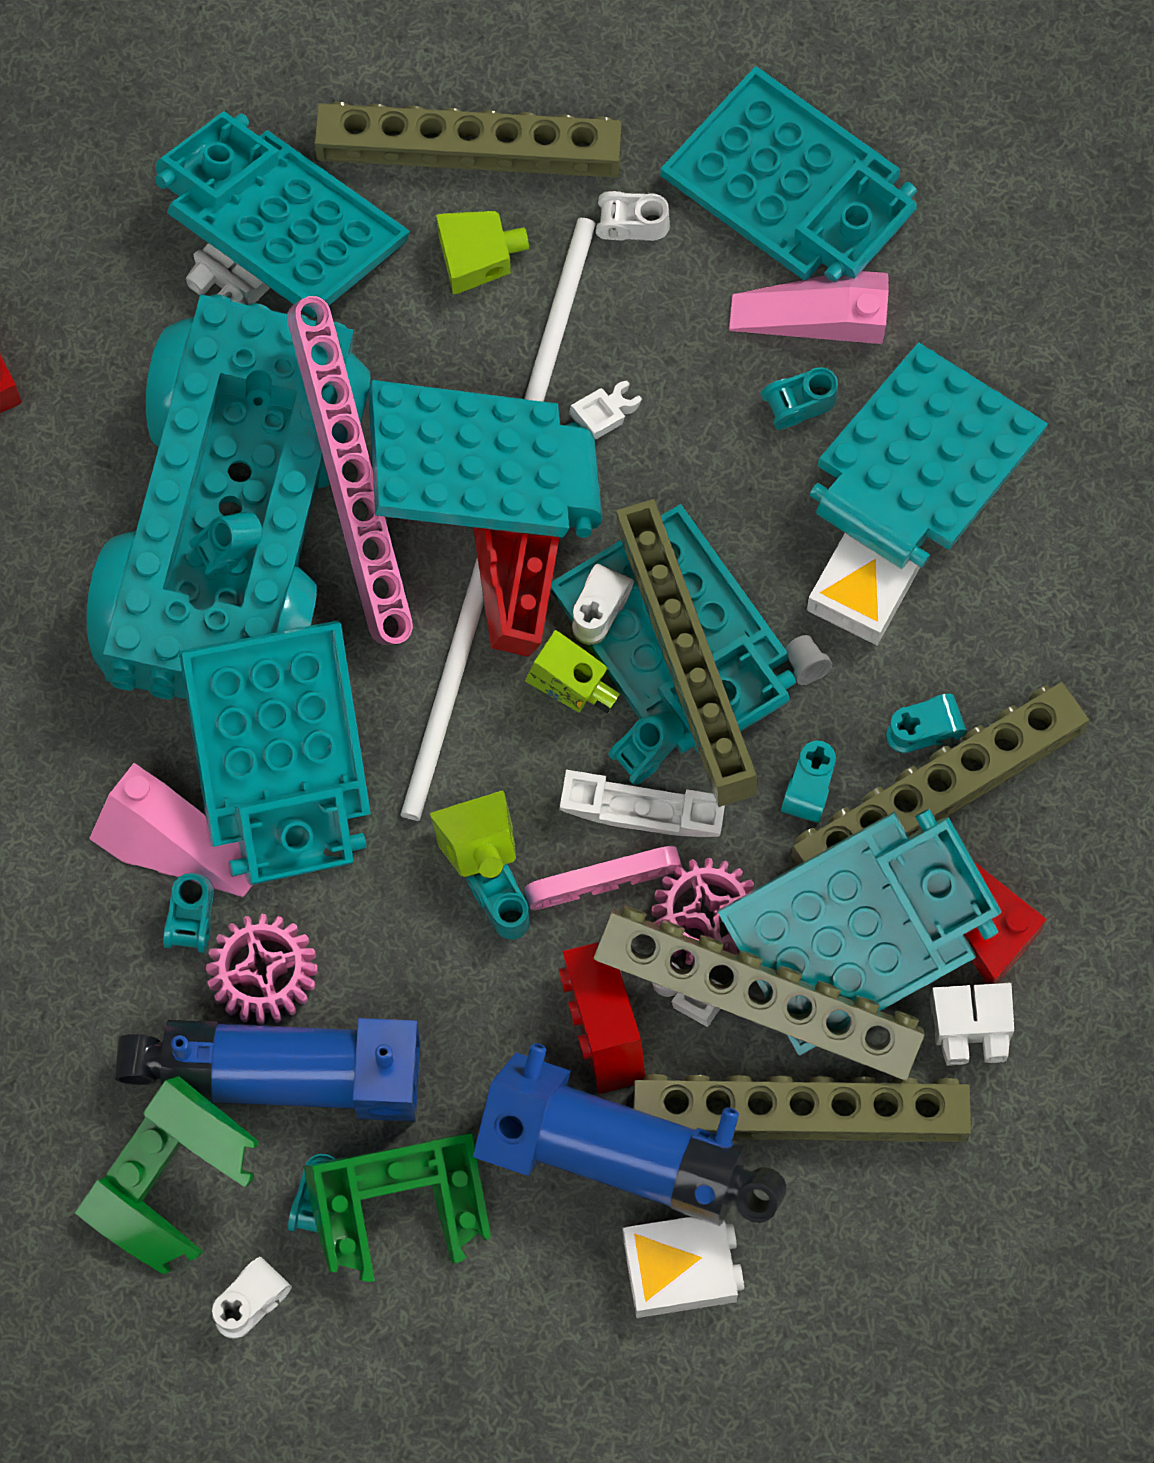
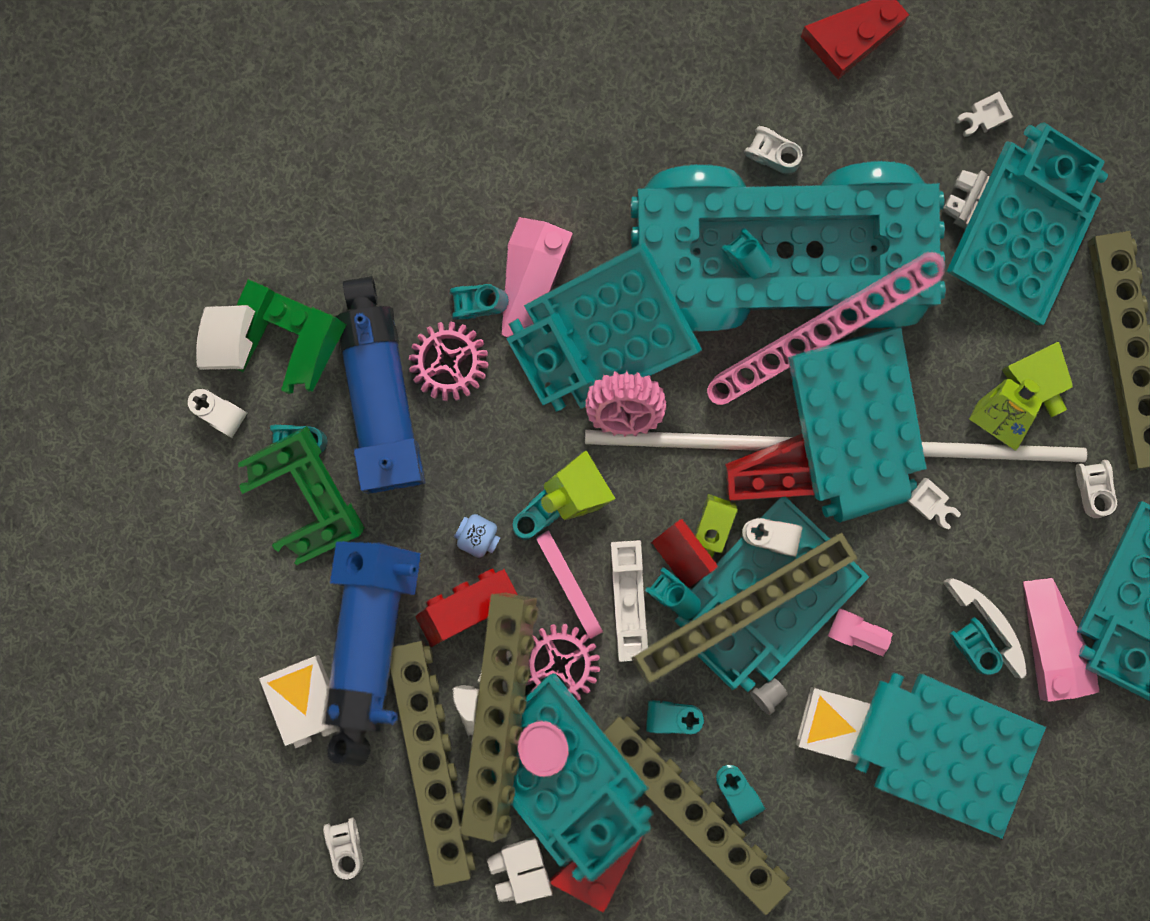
camera: 80 degrees right, 15 degrees up
(89, 501) = (772, 149): none -> white piece
(122, 235) = (987, 113): none -> white plate
(148, 1261) = (223, 337): none -> white slope
(381, 744) = (625, 404): none -> bright pink gear
(509, 291) = (1008, 411): none -> lime torso
(509, 981) = (477, 535): none -> light blue head
(595, 717) = (684, 553): none -> red tile
(744, 1038) = (466, 703): none -> white slope
(747, 536) = (853, 630): none -> bright pink piece
(773, 366) = (1012, 653): none -> white slope
(814, 939) = (543, 748): none -> bright pink piece
(892, 1250) = (344, 846): none -> white piece

